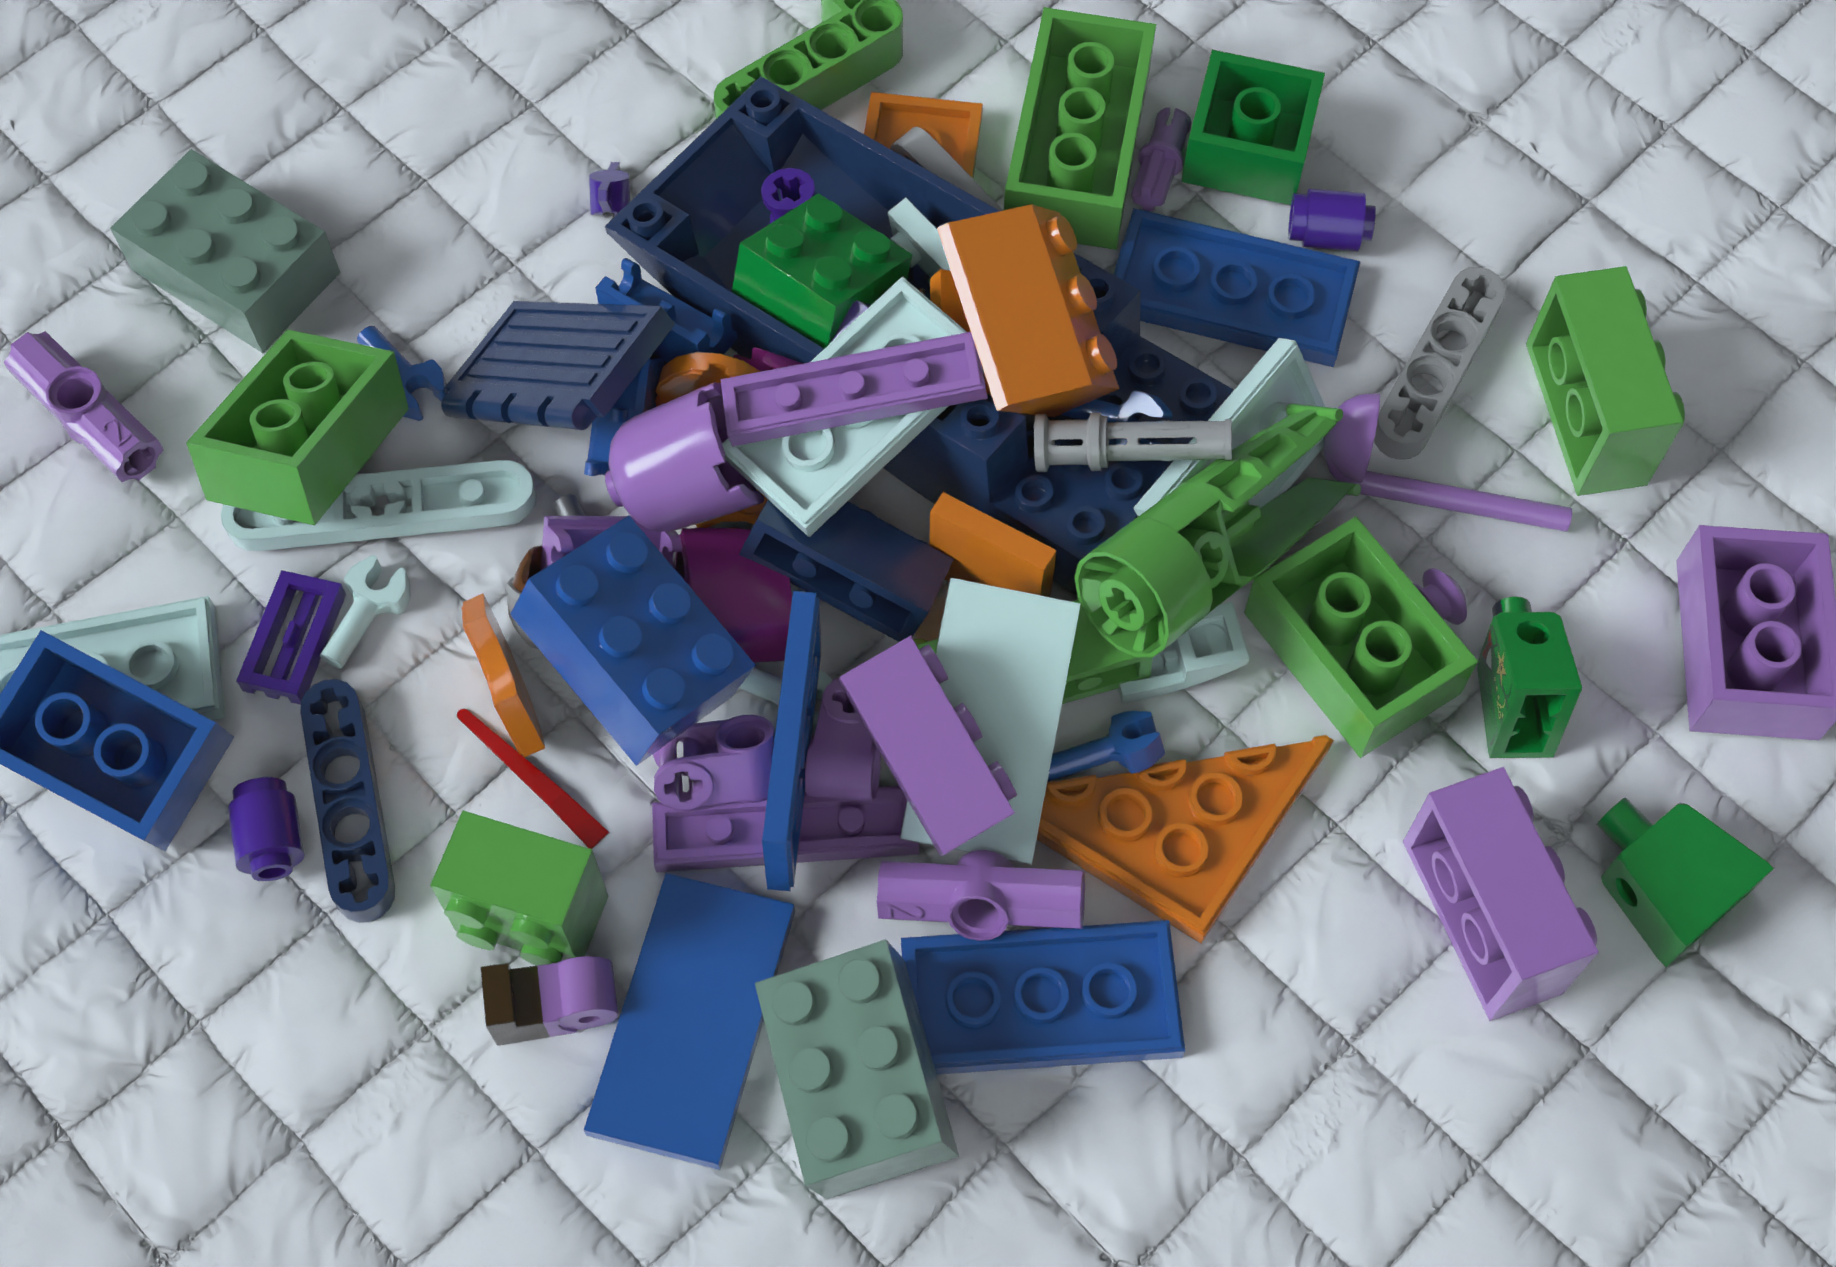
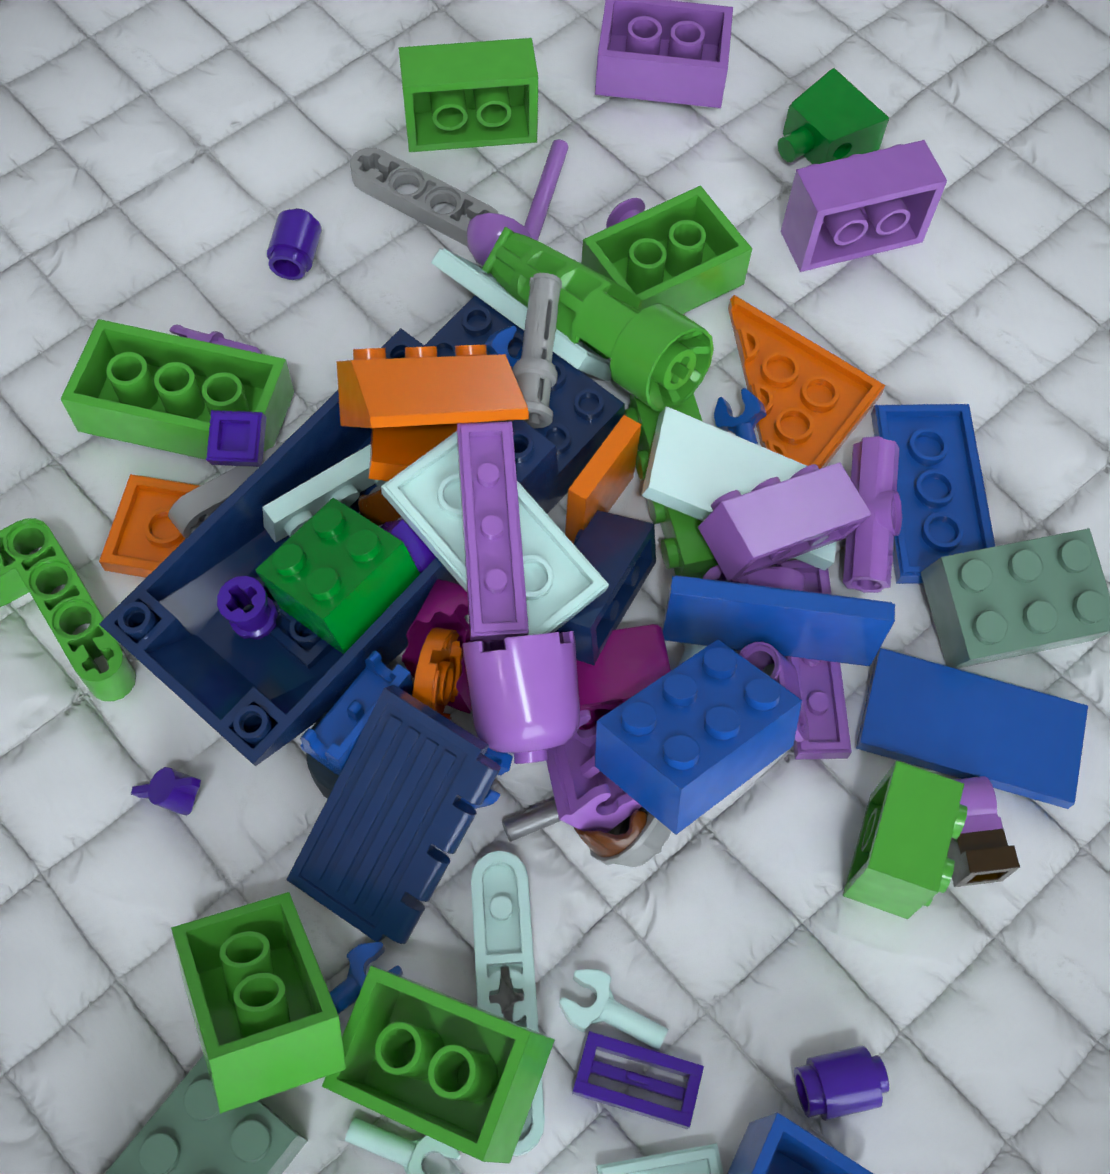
camera: 90 degrees left, 0 degrees up
(343, 799) = (802, 1021): dark blue beam -> none
(367, 260) = (258, 1001): none -> bright green brick
(502, 675) = (687, 874): orange tile -> none
(561, 803) = (788, 837): red sticker -> none
(1001, 168) = (236, 438): none -> dark purple tile
(1237, 285) = (340, 310): blue tile -> none
(1252, 127) = (202, 275): green brick -> none
(1520, 658) = (693, 160): green torso -> none

